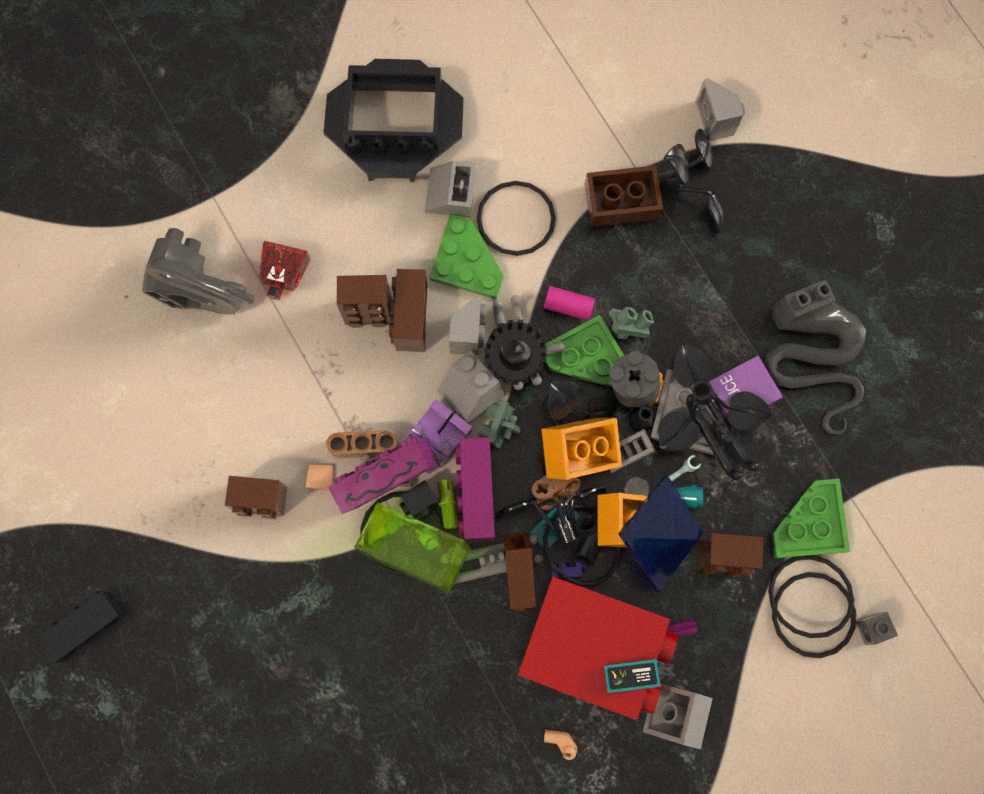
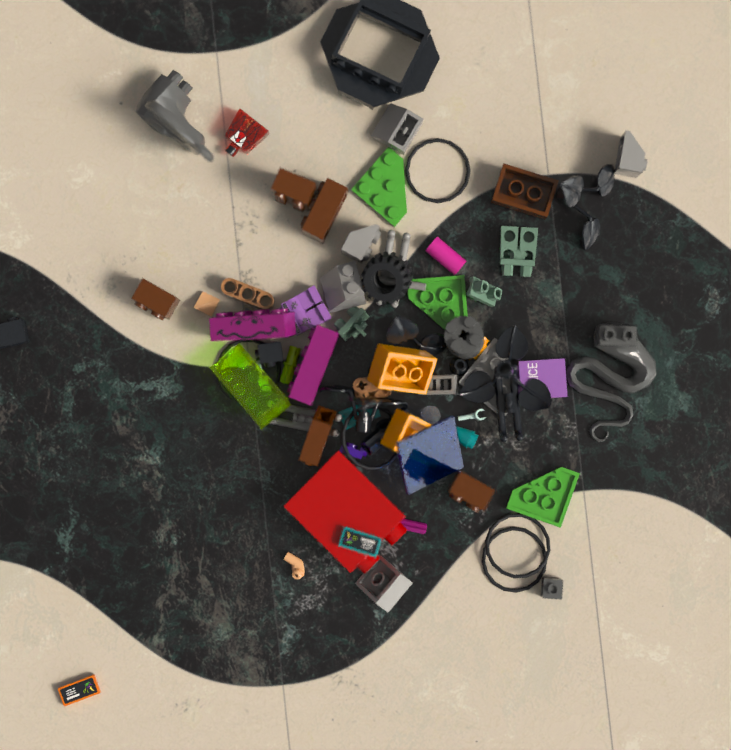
camera: 25 degrees right, 10 degrees up
(645, 262) = (514, 255): none -> sand green hips

